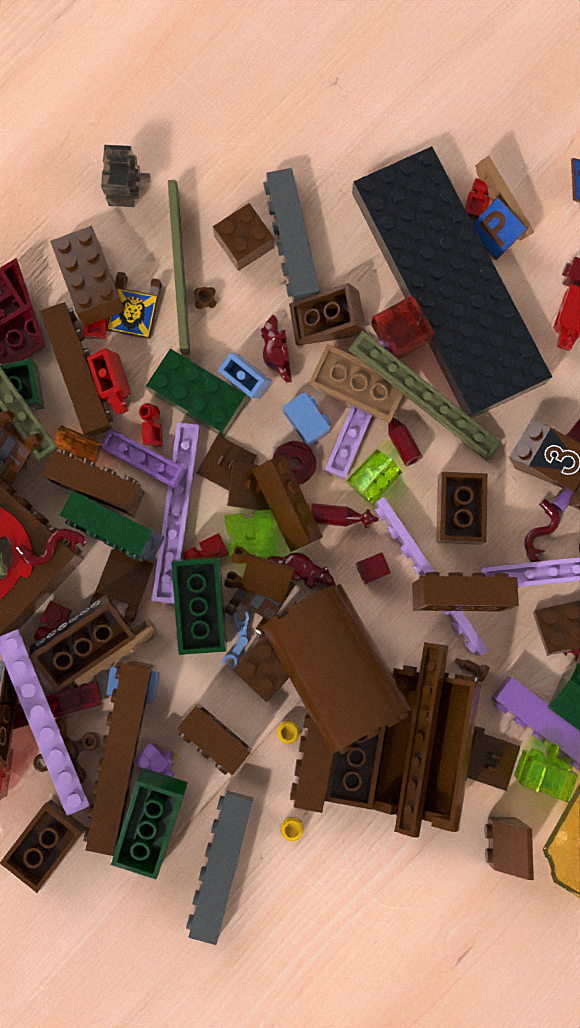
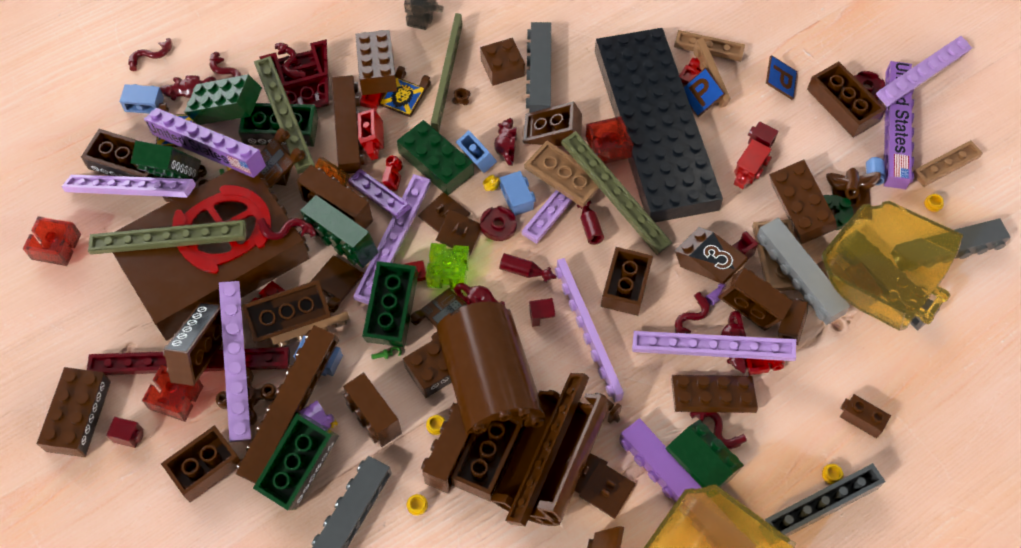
camera: 15 degrees right, 20 degrees down
(208, 660) = (385, 353): none -> bright green hand
(242, 641) = (421, 335): light blue piece -> none
(260, 575) = (448, 292): reddish brown flag -> none
(272, 411) = (491, 183): none -> yellow plate
(287, 503) = (484, 246): reddish brown brick -> none
(374, 476) = (561, 245): clear neon green brick -> none
(465, 593) = (612, 336): reddish brown brick -> none
(502, 154) = (716, 46): none -> medium nougat plate
(546, 773) = (650, 502): clear neon green brick -> none

